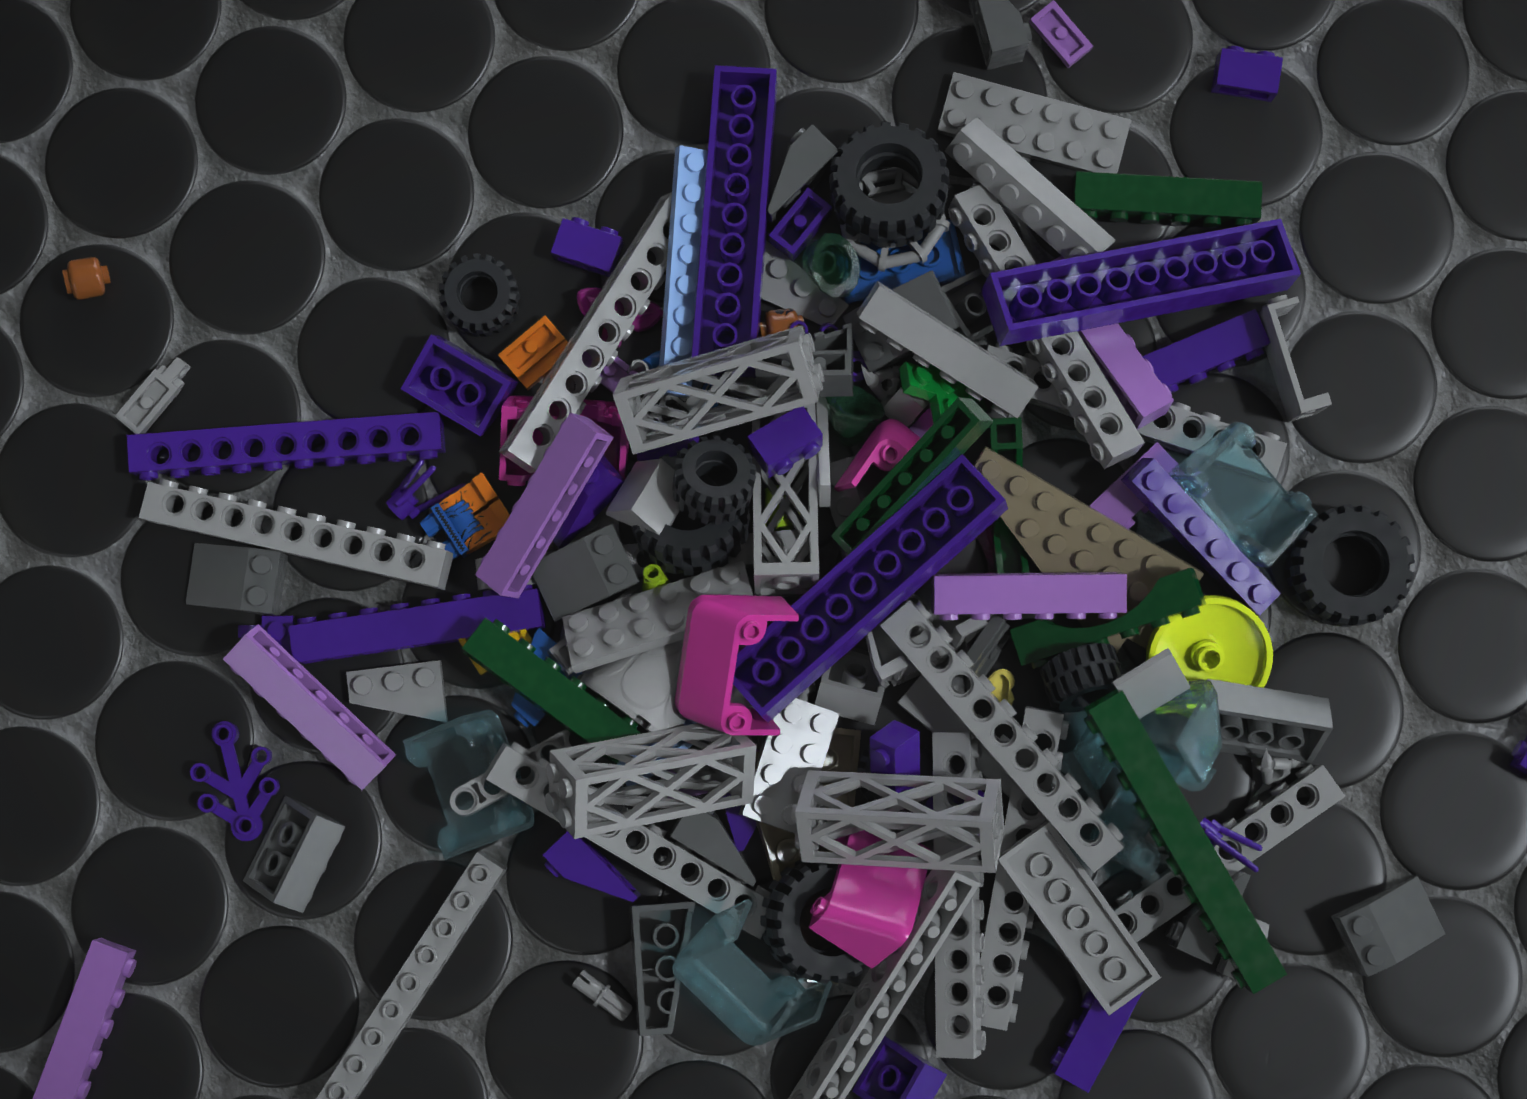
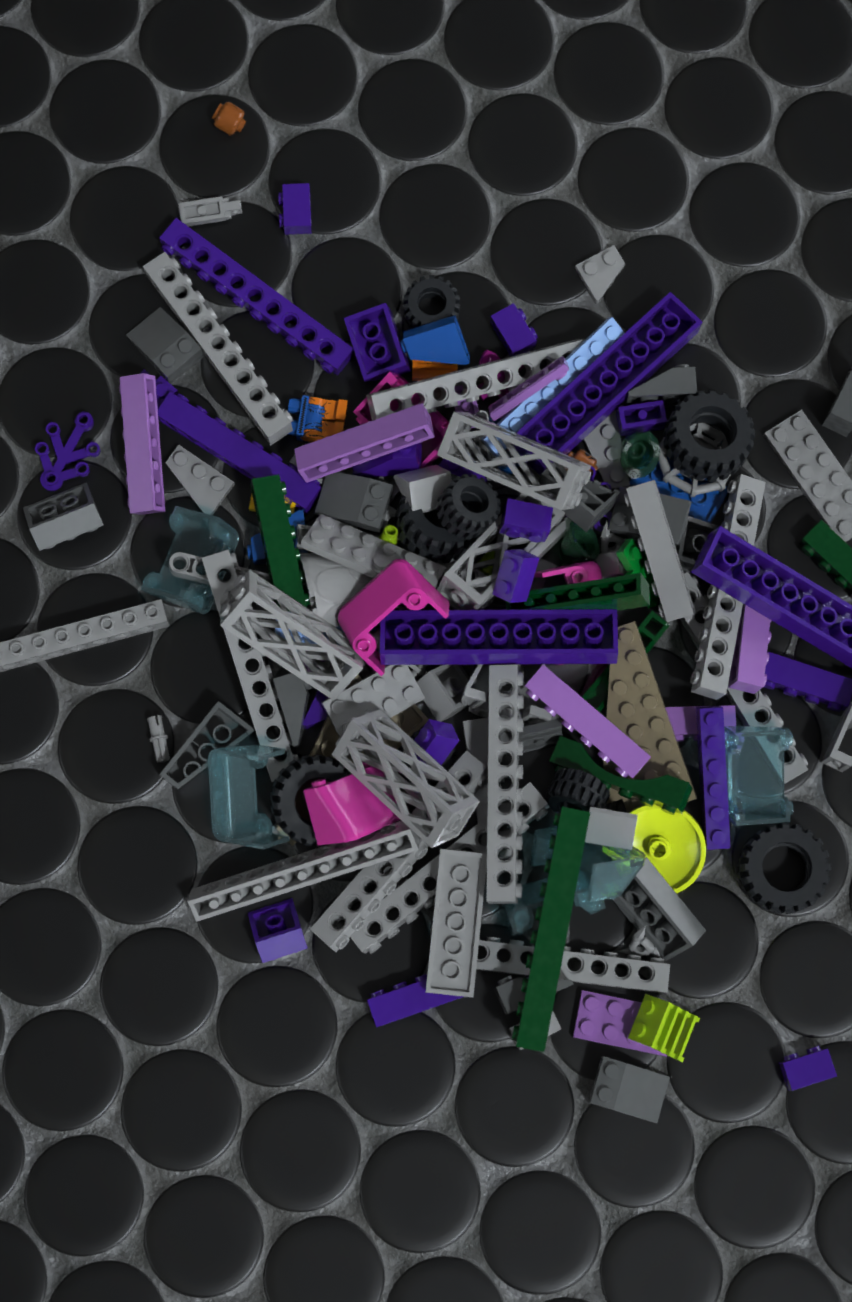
camera: 35 degrees right, 5 degrees down
(244, 313) = (296, 209): none -> dark purple brick
(403, 499) = (291, 381): dark purple plant -> none
(521, 330) = (437, 342): none -> blue slope
(586, 865) = (211, 649): dark purple slope -> none
(620, 105) = (600, 271): none -> light grey wing
(672, 257) = (553, 371): none -> medium lavender plate
(828, 510) = (515, 575): none -> dark purple brick
(1003, 682) = (530, 763): light yellow tile -> none
(1027, 192) = (783, 505): light grey brick -> none
(1213, 831) = (572, 945): dark purple plant -> none
(1325, 863) = (608, 1021): none -> medium lavender plate
(1370, 835) = (663, 1027): none -> lime plate

